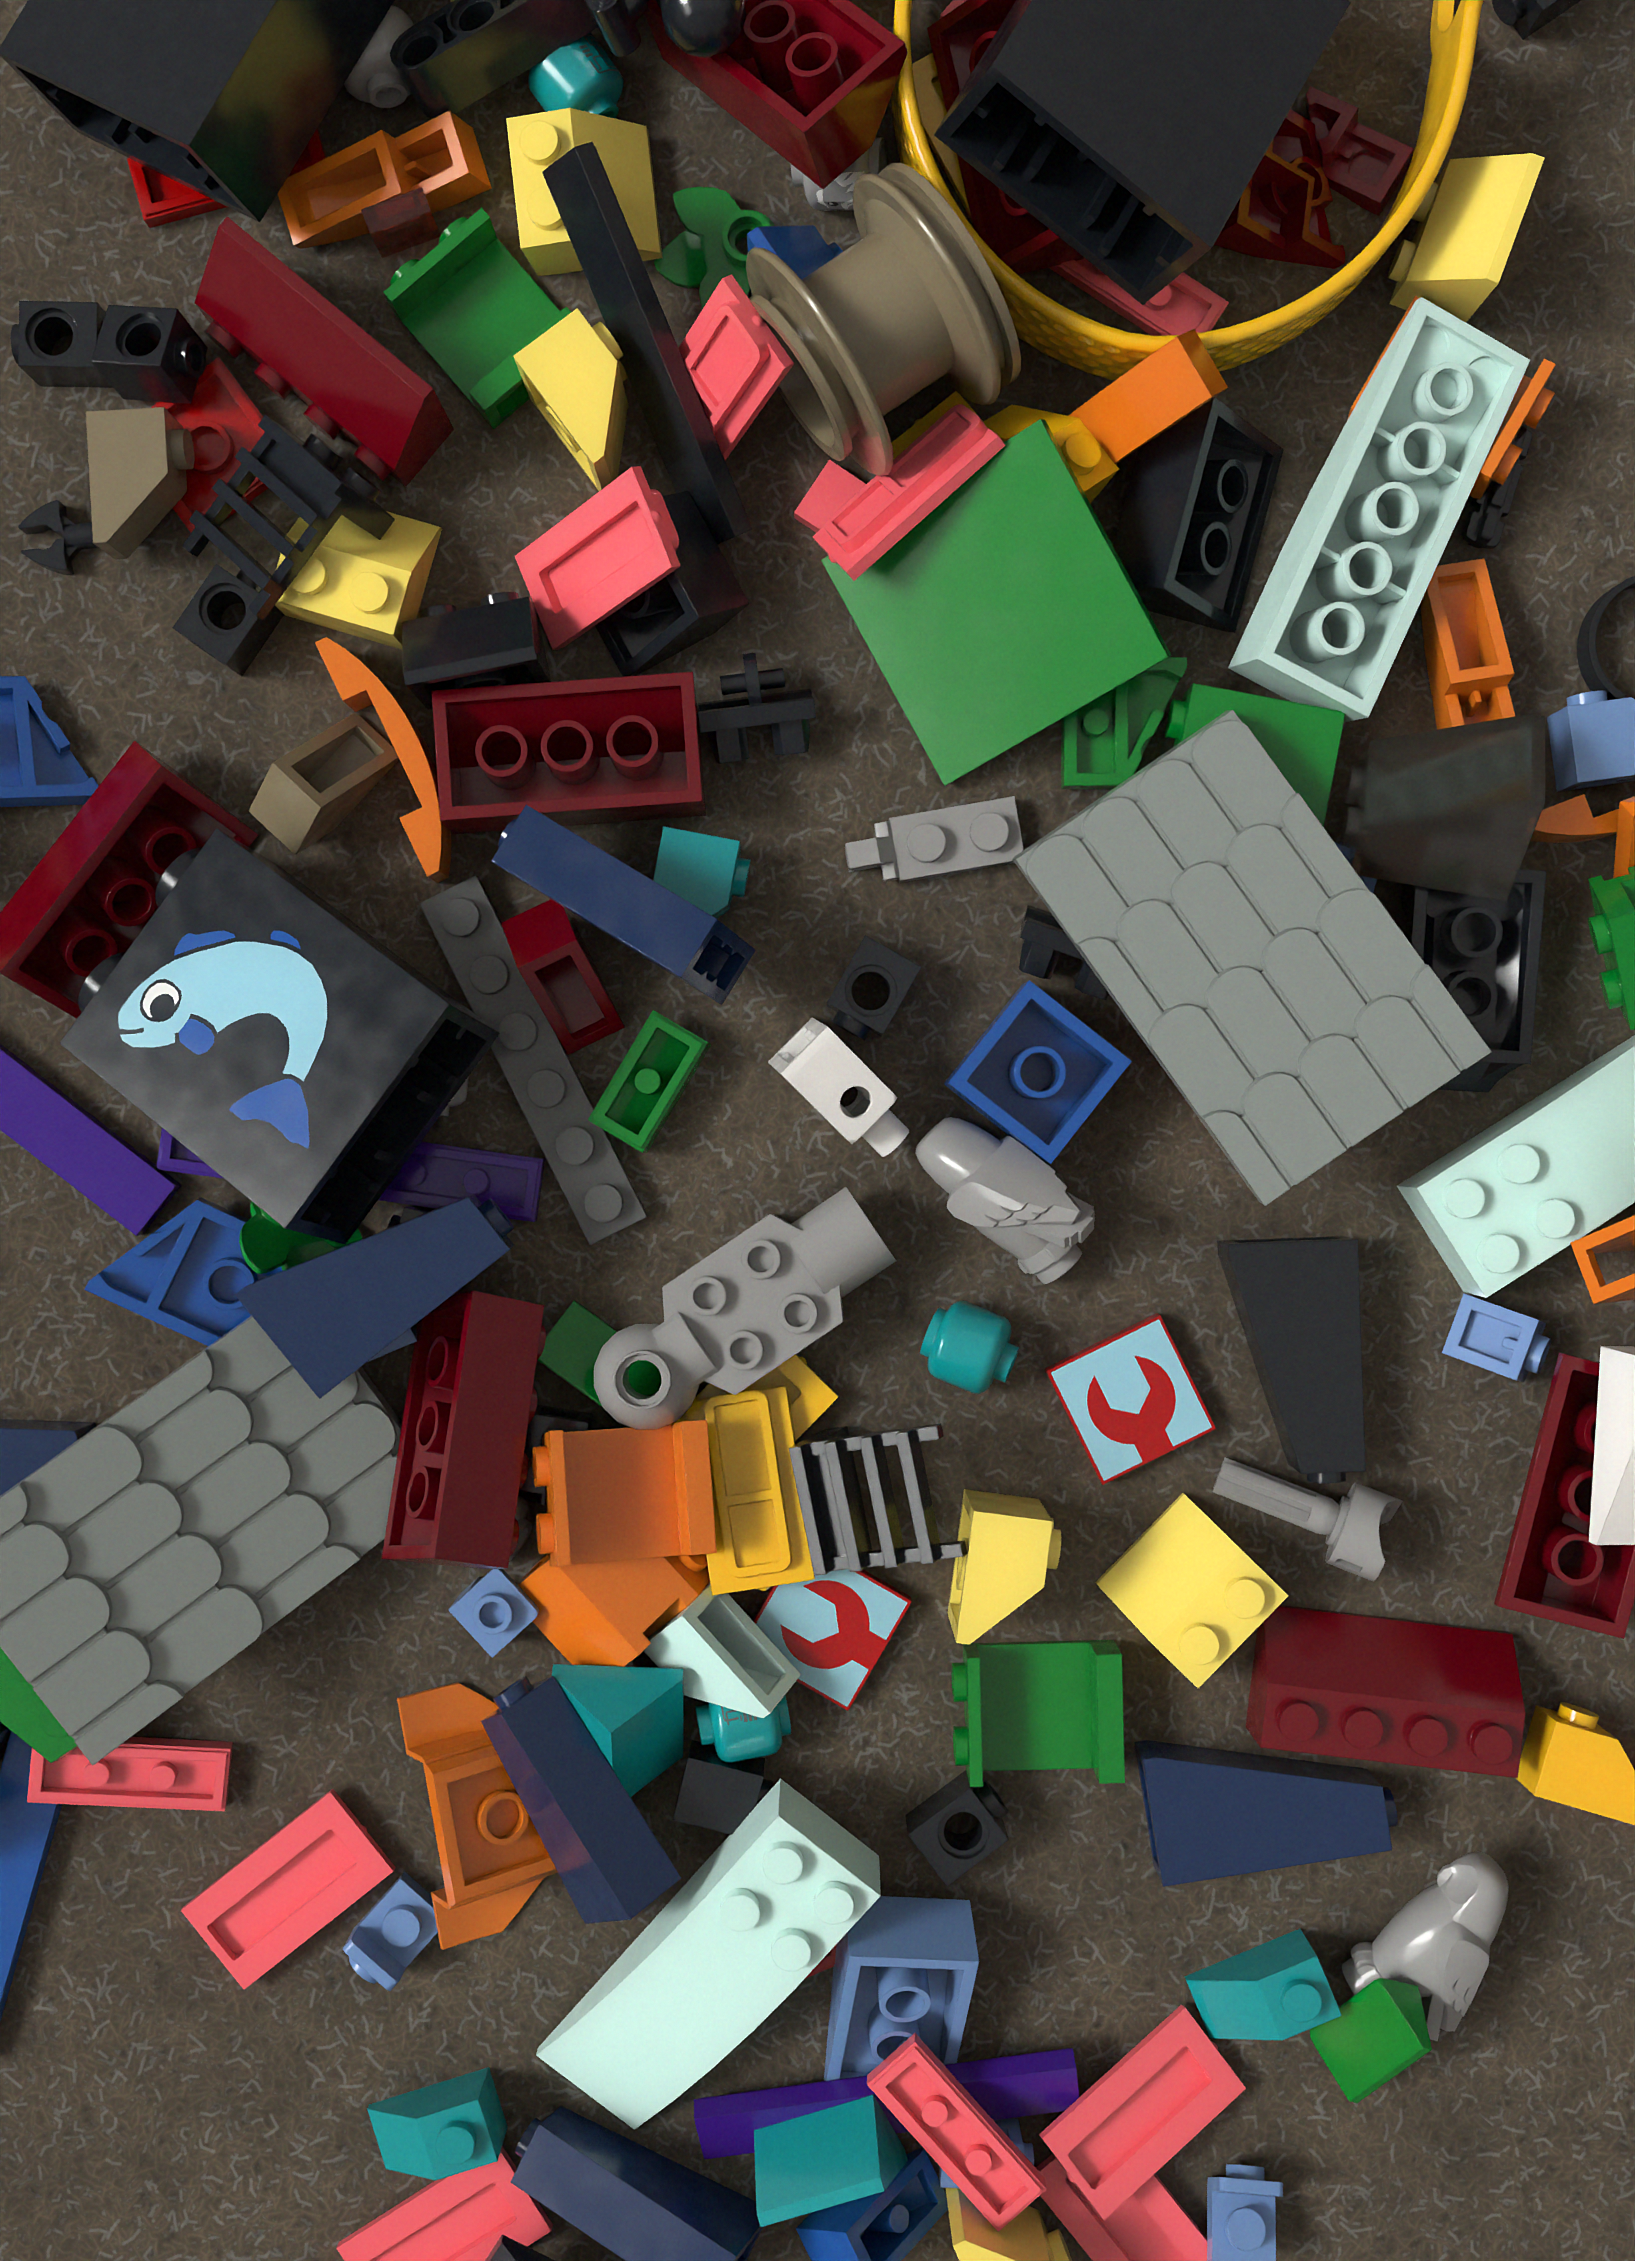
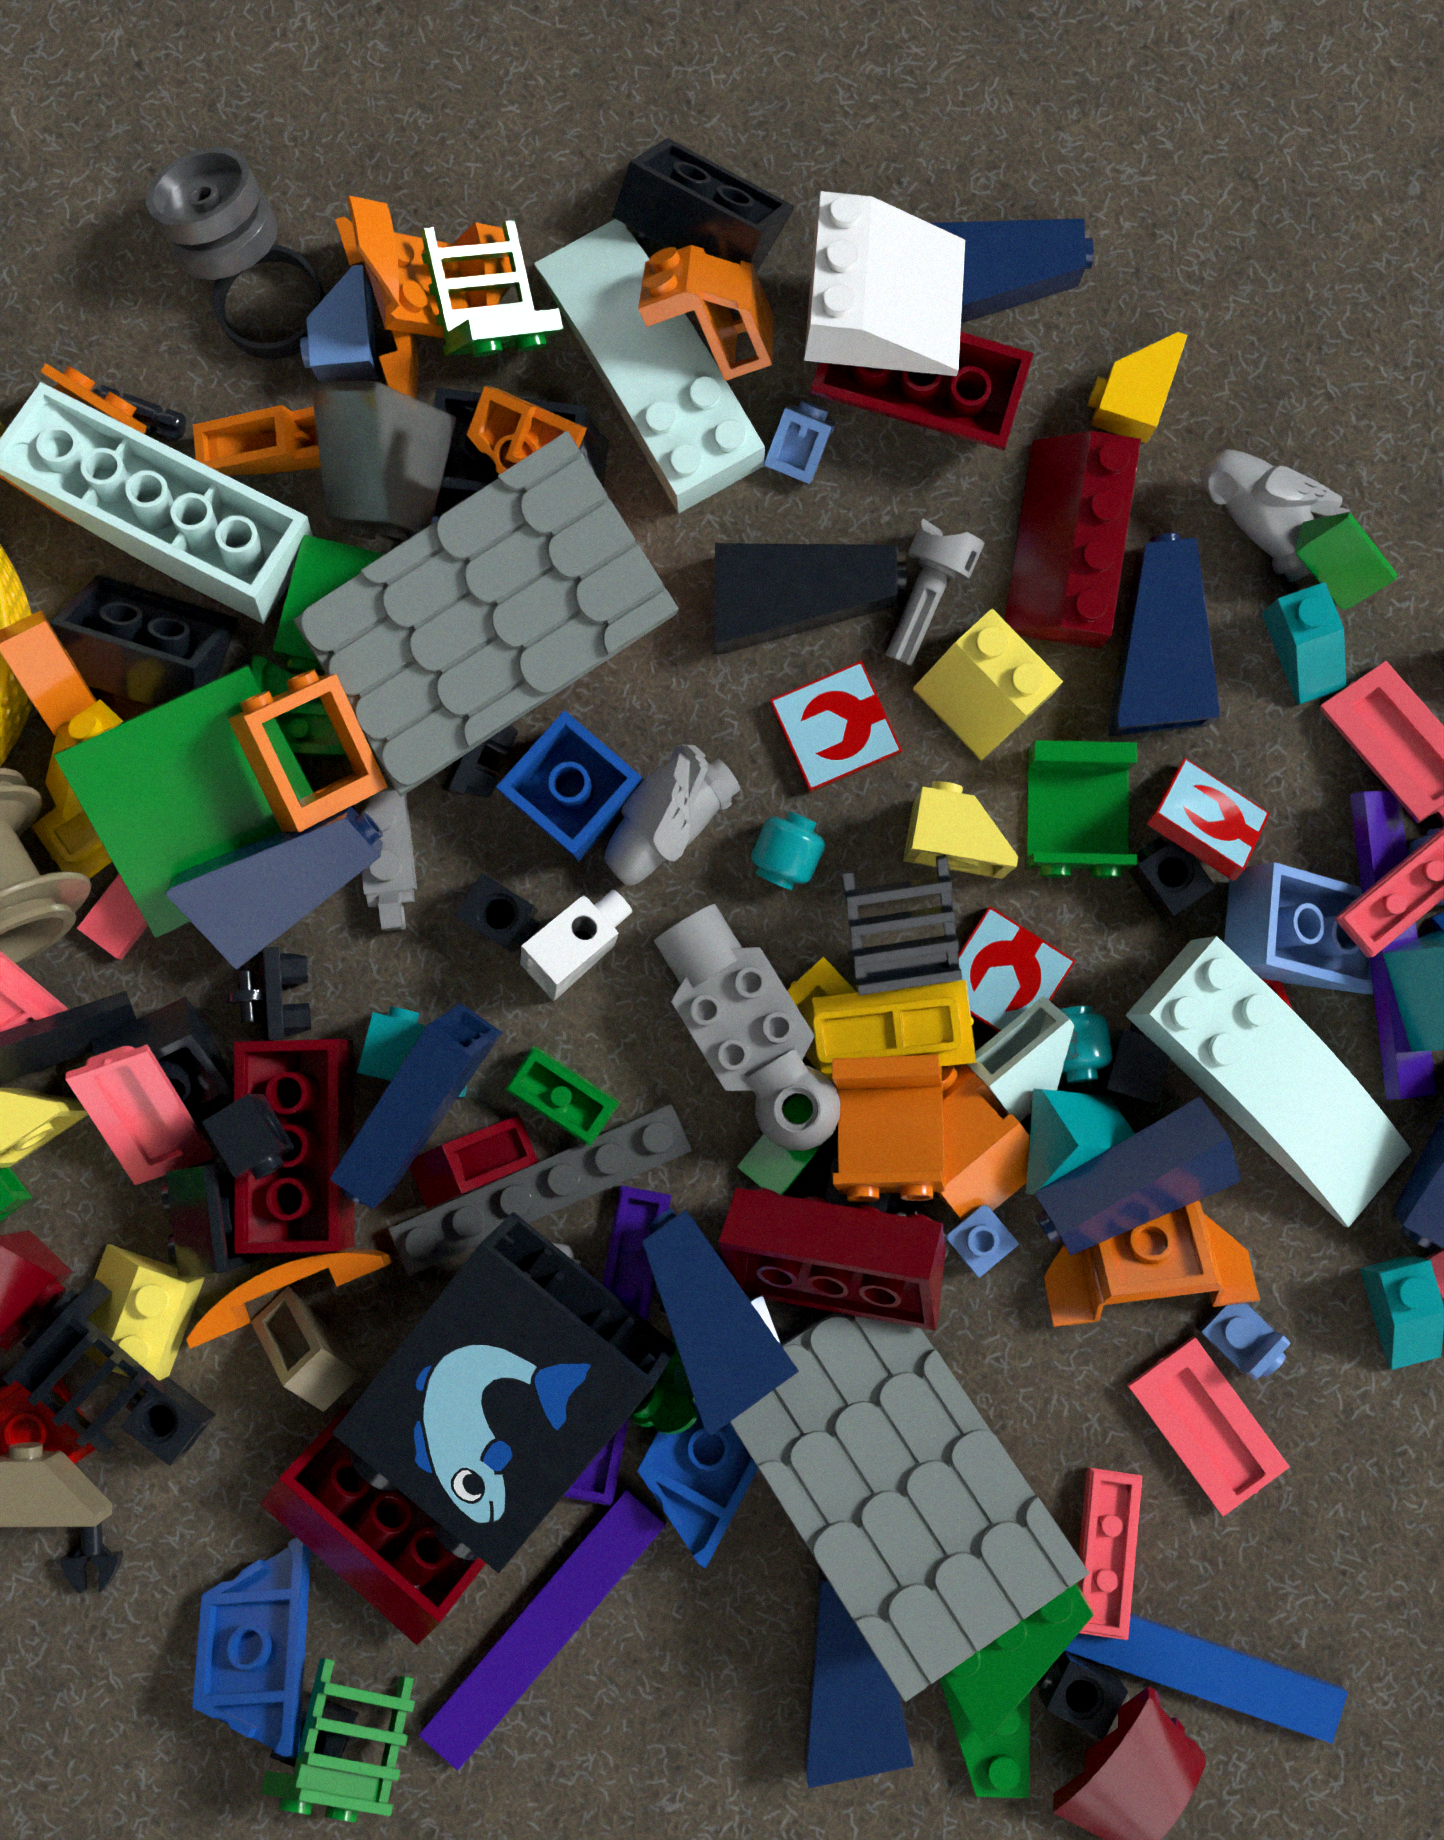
camera: 85 degrees left, 5 degrees down
(572, 701) = (249, 1137): none -> black brick
(896, 708) = (271, 884): none -> dark blue slope
(916, 485) = (101, 858): coral piece -> none
(1005, 772) = (289, 812): none -> orange window
(1032, 1874) = (1209, 819): none -> tile
(1493, 978) = (514, 428): none -> orange slope

